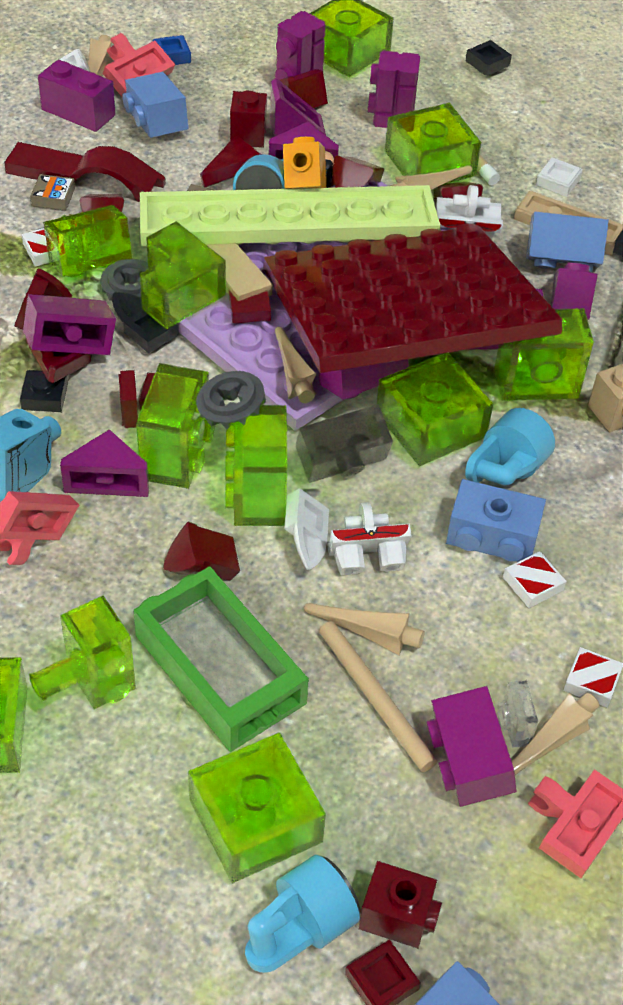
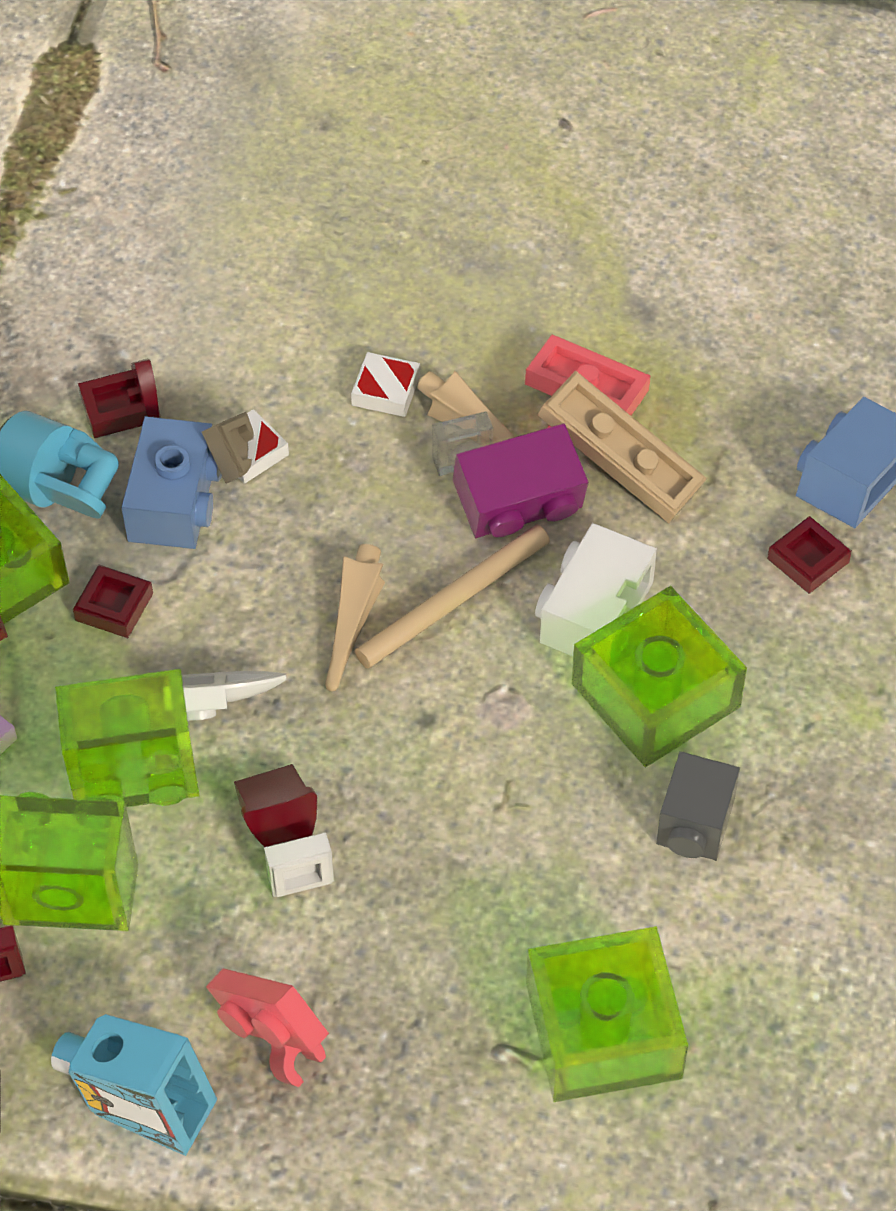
camera: 95 degrees left, 5 degrees up
(96, 656) = (489, 881): clear neon green brick -> none
(105, 468) = (128, 958): magenta slope -> none
(135, 821) = (697, 806): none -> dark grey brick
(151, 560) = (299, 865): none -> white tile
(220, 657) = (440, 760): bright green window -> none
(229, 387) = (59, 717): dark grey gear -> none
(310, 910) = (758, 611): medium azure piece -> none
(343, 443) = (59, 642): clear smoke brick -> none
(356, 785) = (597, 584): none -> white brick
(369, 534) = (217, 617): white hips -> none
(399, 905) = (732, 538): dark red brick -> none
(400, 489) = (113, 601): none -> dark red tile
(504, 831) = (623, 447): none -> tan tile
(520, 552) = (230, 446): none -> dark tan tile
(583, 508) = (120, 399): none -> dark red tile

